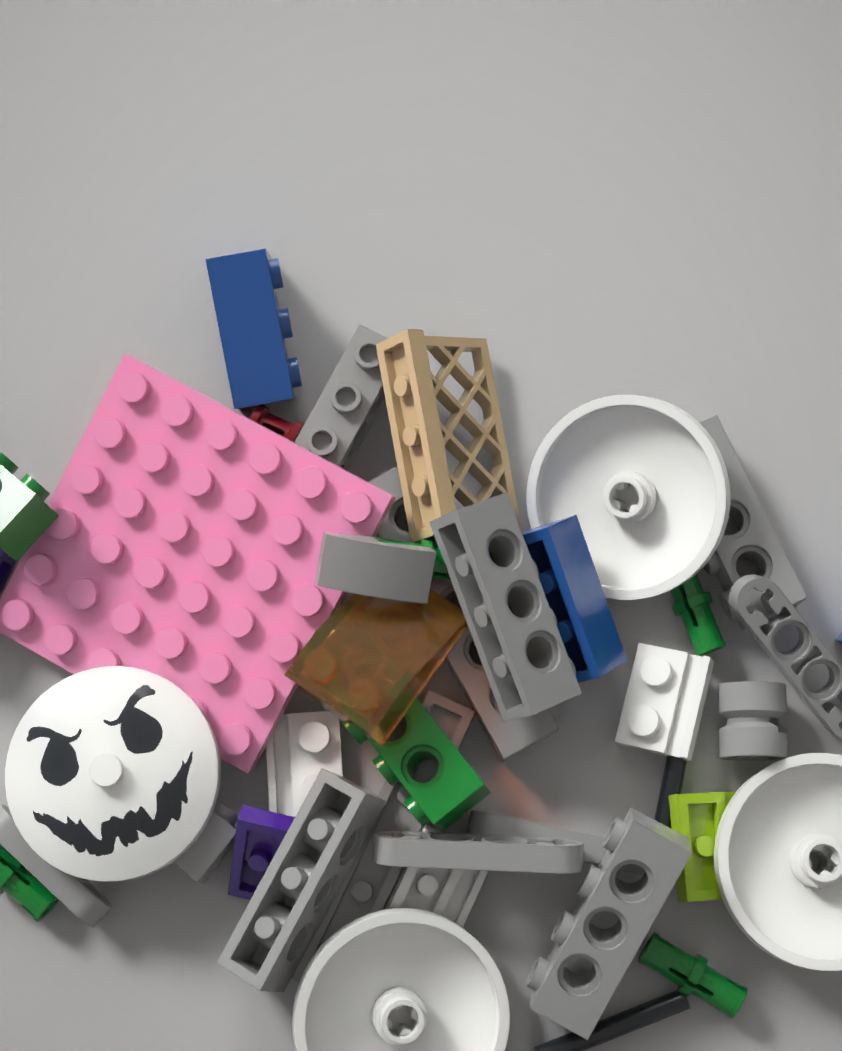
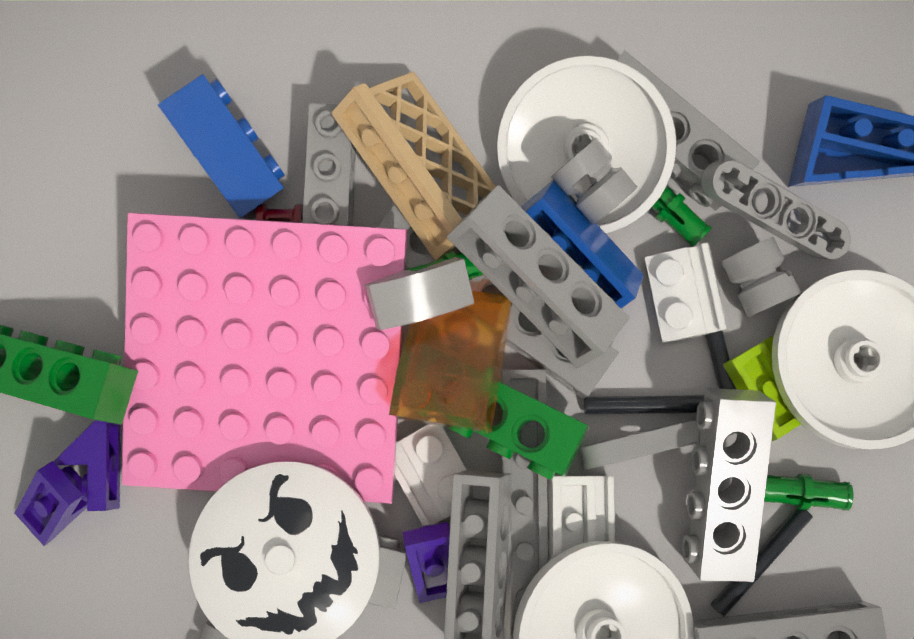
camera: 35 degrees left, 5 degrees up
(478, 852) = (604, 479): light grey beam -> none
(557, 796) = (642, 404): none -> black bar
(613, 535) = (606, 193): none -> light grey wheel

